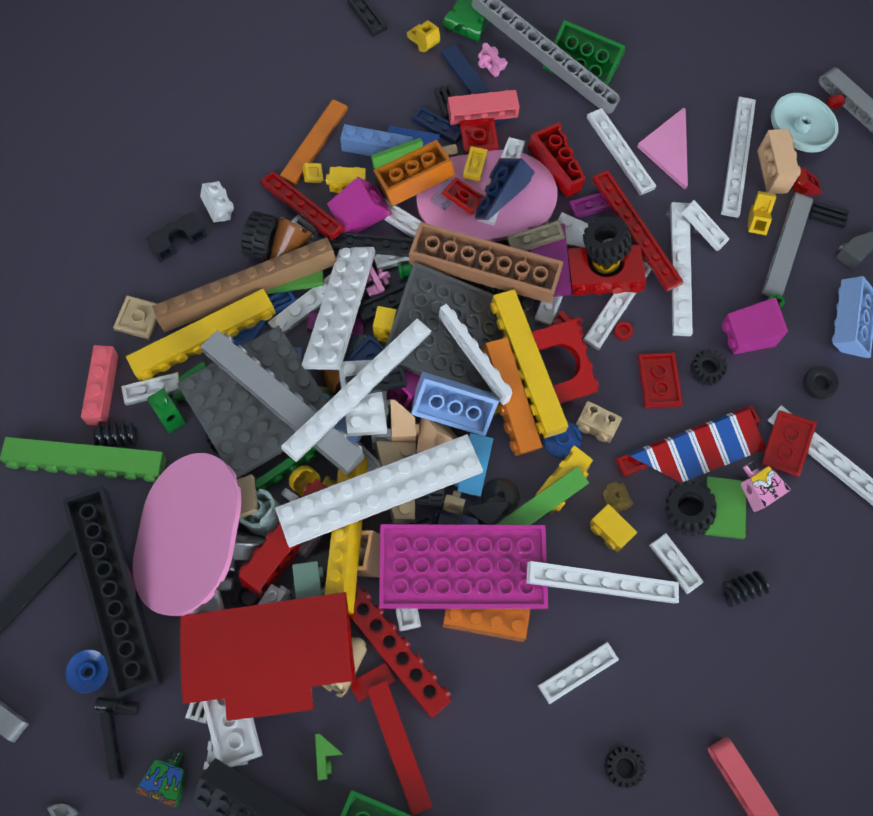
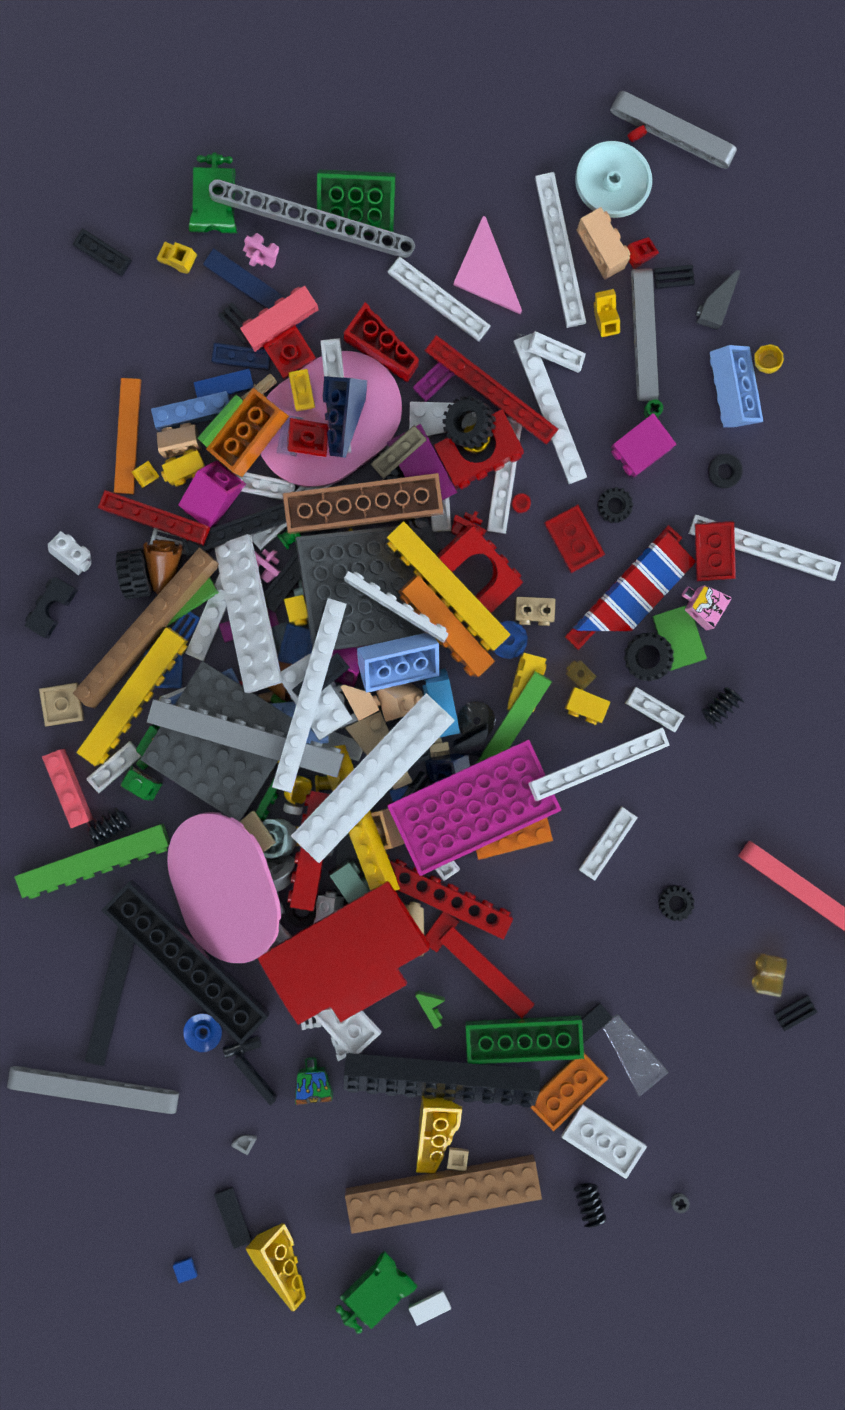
camera: 20 degrees left, 20 degrees up
(353, 157) = (177, 441): none -> light nougat slope

